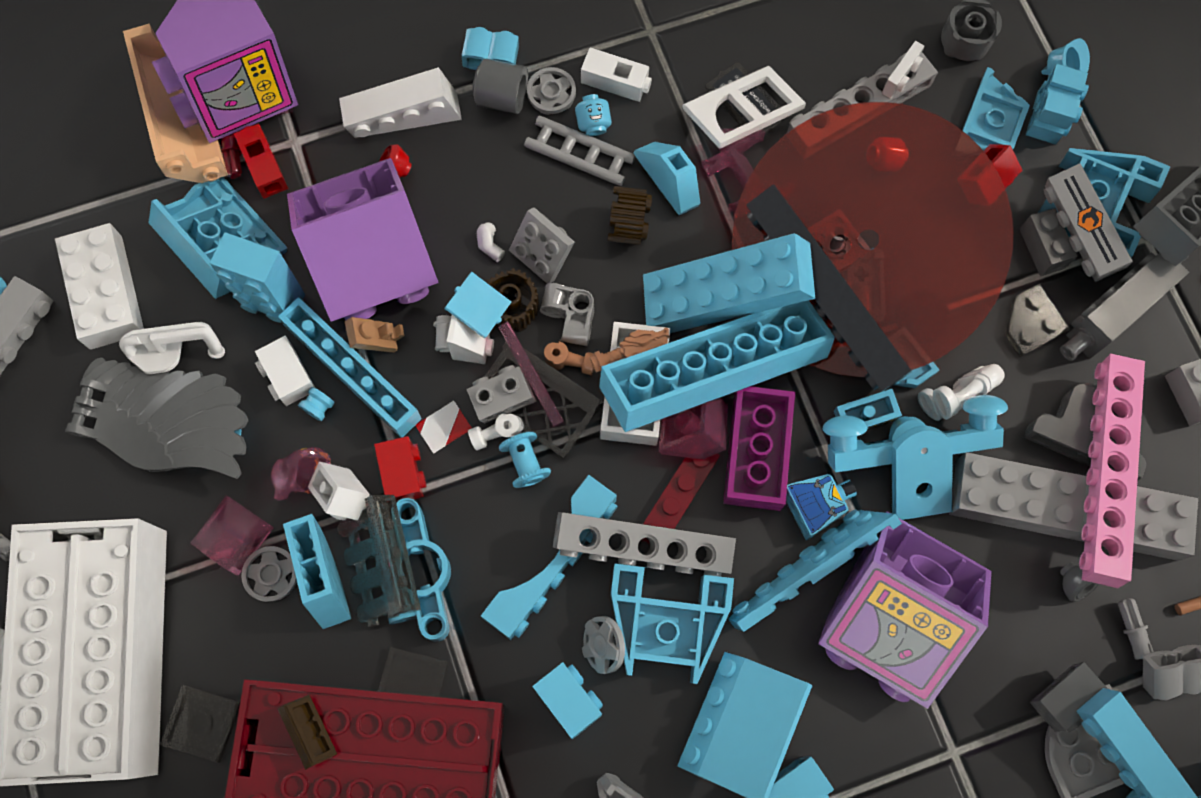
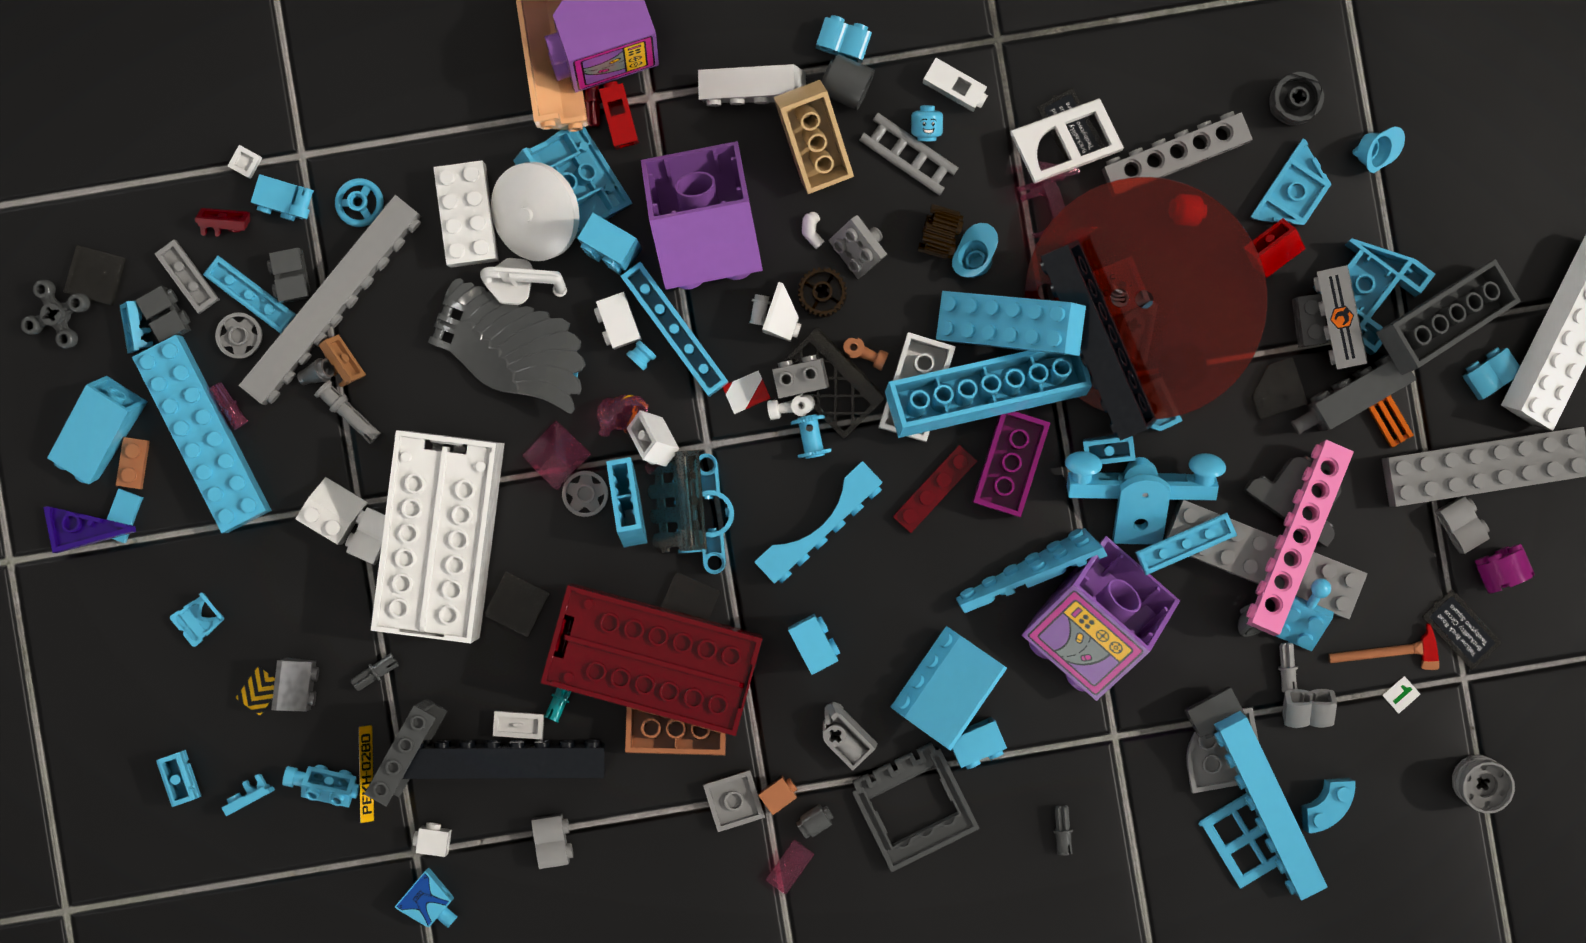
camera: 15 degrees right, 15 degrees up
(172, 265) = (535, 211): none -> white dish
(307, 731) = (612, 634): dark brown plate -> none
(373, 334) = (699, 303): medium nougat plate -> none
(399, 158) = (739, 133): red cone -> none
(399, 468) = (704, 426): red brick -> none
(472, 136) = (813, 136): none -> tan brick
(477, 305) = (794, 299): medium azure piece -> none
(531, 374) = (828, 364): clear pink bar -> none
(551, 91) = (893, 88): light grey wheel -> none
(560, 303) = (866, 299): light grey piece -> none
(601, 646) = (846, 602): light grey wheel -> none
(633, 344) = (923, 358): nougat piece -> none
(669, 629) = (902, 599): medium azure wedge -> none
(671, 230) = (975, 251): none -> medium azure piece
(672, 174) = (986, 193): medium azure slope -> none
(695, 431) = (960, 442): clear pink slope -> none
(718, 548) = (841, 503): light grey brick -> none
(818, 502) = (1051, 517): torso -> none
(899, 78) = (1227, 130): white plate -> none
(947, 402) = (1206, 439): white piece -> none
(984, 500) = (1186, 543): none -> medium azure tile
(1058, 104) = (1353, 191): medium azure brick -> none
(1149, 563) = (1306, 619): none -> medium azure plate
(1166, 330) = (1400, 438): none -> orange tile

